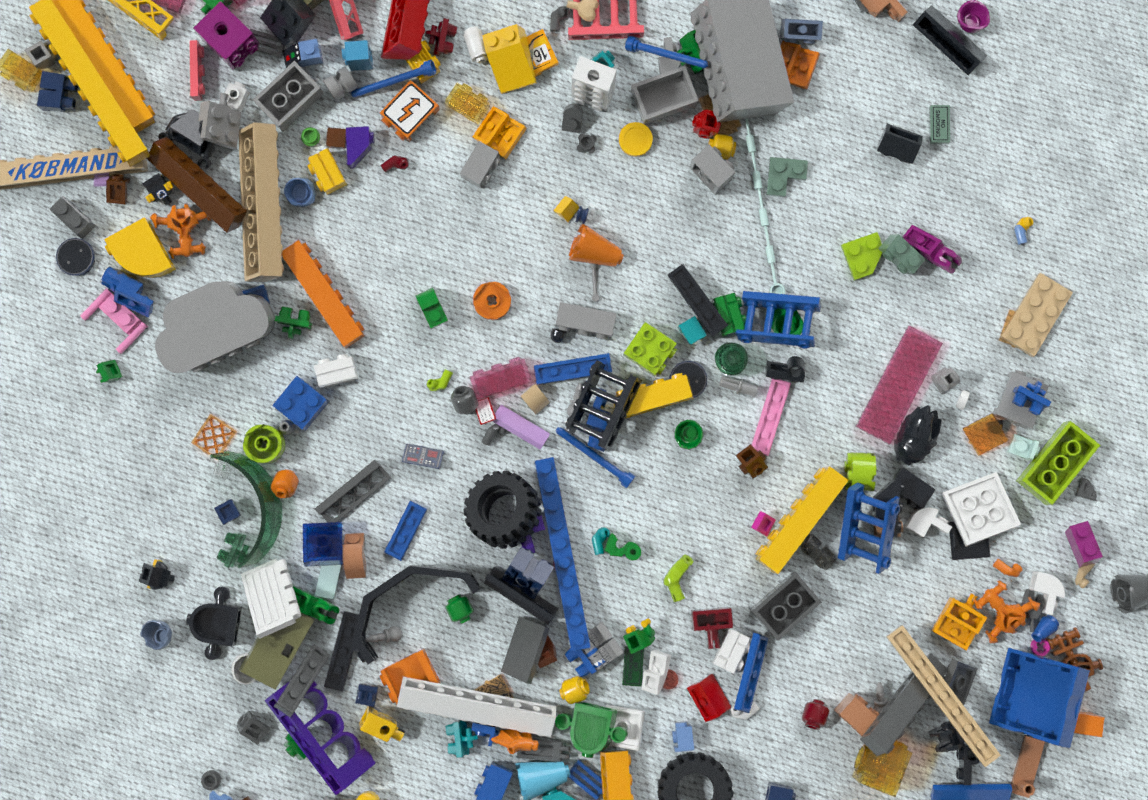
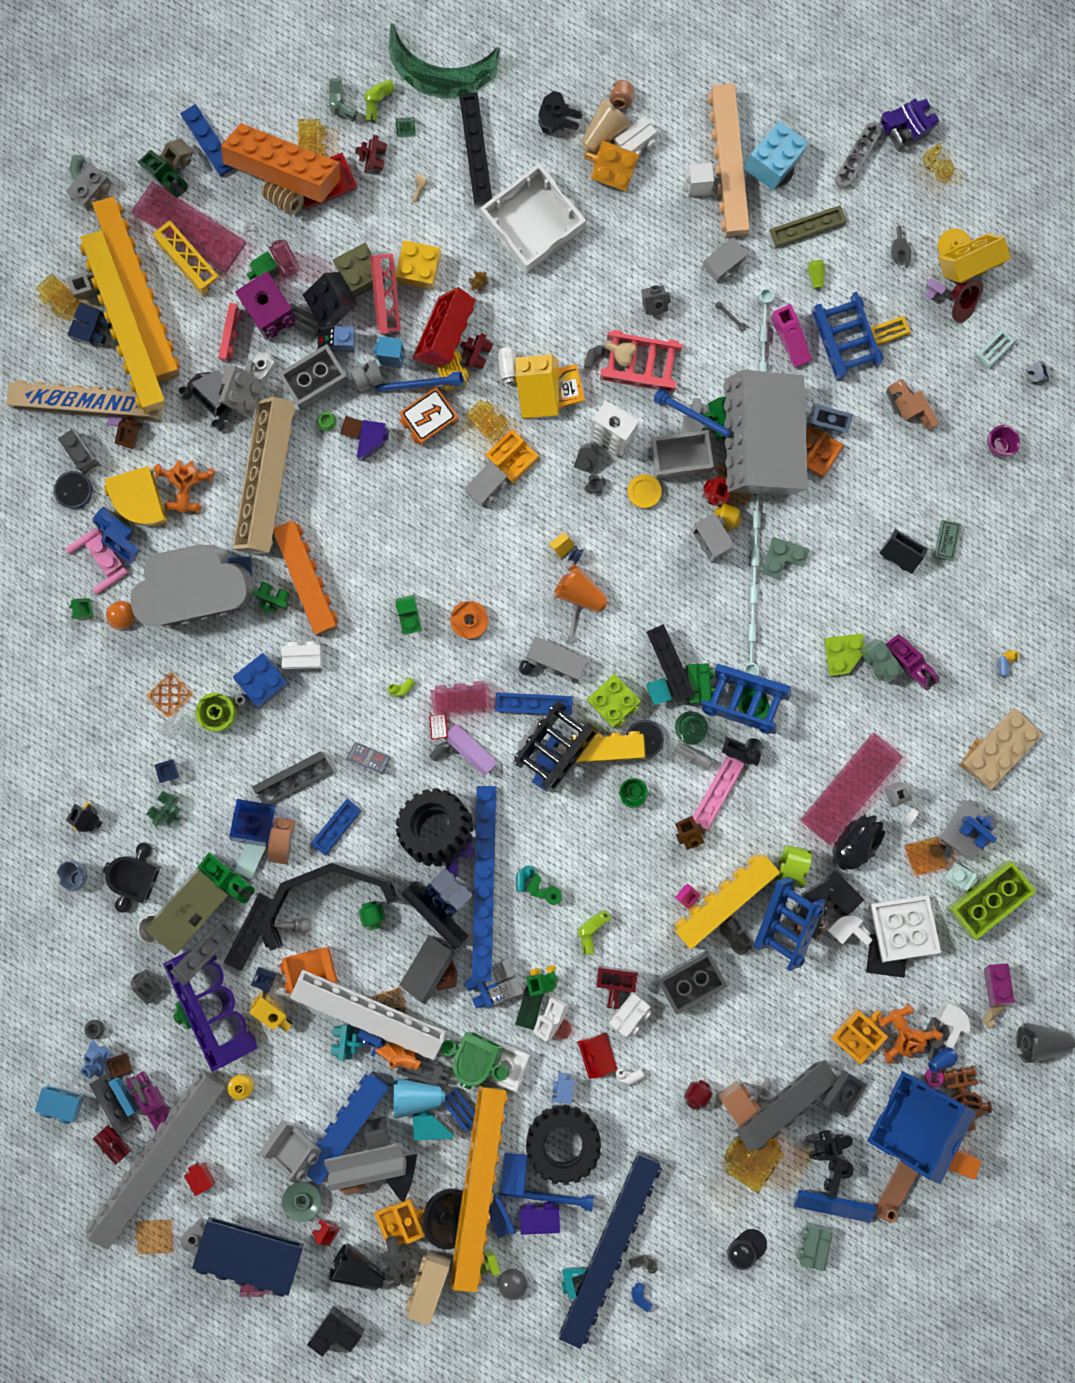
camera: 15 degrees right, 0 degrees up
(149, 369) = (120, 615): none -> orange hair
(158, 189) = (167, 441): black piece -> none
(196, 184) = (205, 445): reddish brown brick -> none
(269, 503) = (209, 769): clear green windscreen -> none
(271, 597) = (190, 864): white hinge -> none
(284, 483) = (228, 755): orange head -> none
(300, 192) = (305, 473): medium blue hair -> none
(327, 171) = (335, 459): yellow brick -> none
(396, 162) = (405, 464): dark red arm -> none
(464, 400) = (420, 711): dark grey head -> none
(535, 399) = (490, 725): tan brick -> none
(574, 690) = (467, 1019): yellow head -> none
(605, 58) = (629, 406): teal brick -> none
(624, 477) = (561, 822): blue piece -> none
(751, 673) = (643, 1040): blue tile -> none
(943, 696) = (827, 1105): tan plate -> none
(949, 40) = (975, 459): black brick -> none
(1007, 570) = (918, 994): orange arm -> none
(1086, 490) = (1013, 932): dark grey tile -> none

